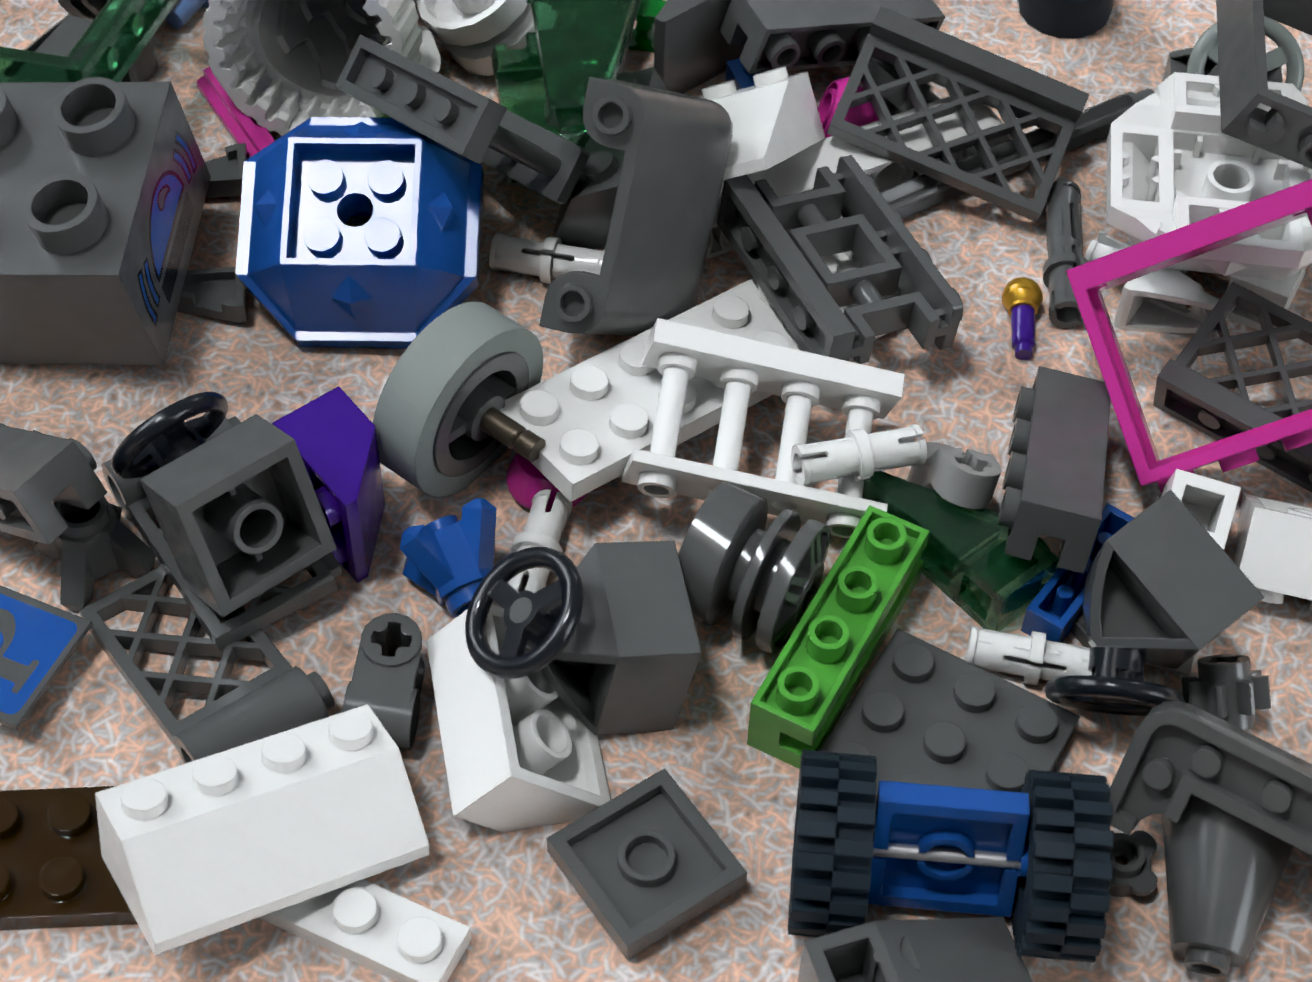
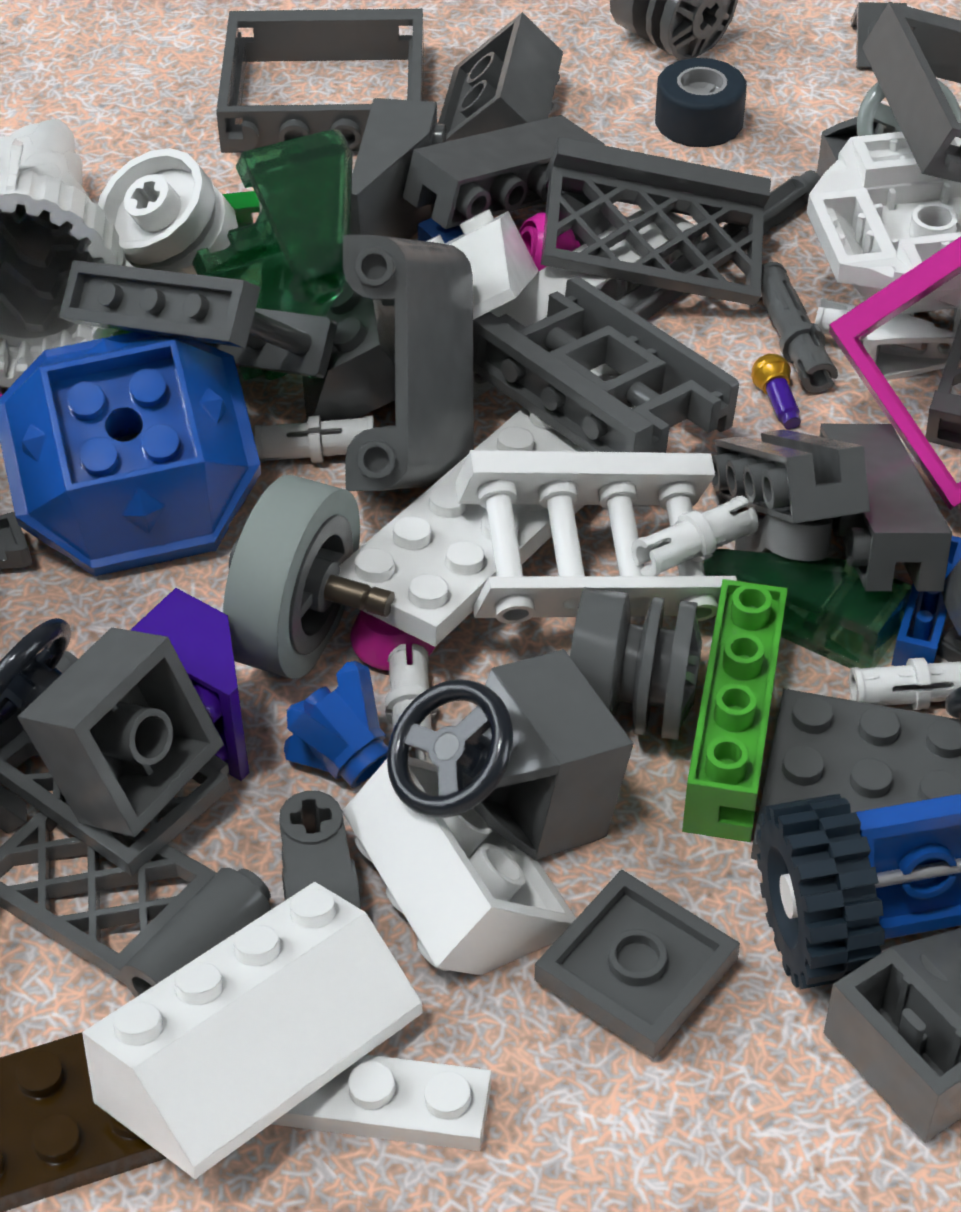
camera: 15 degrees left, 5 degrees down
(977, 428) = (793, 475): none -> dark grey brick

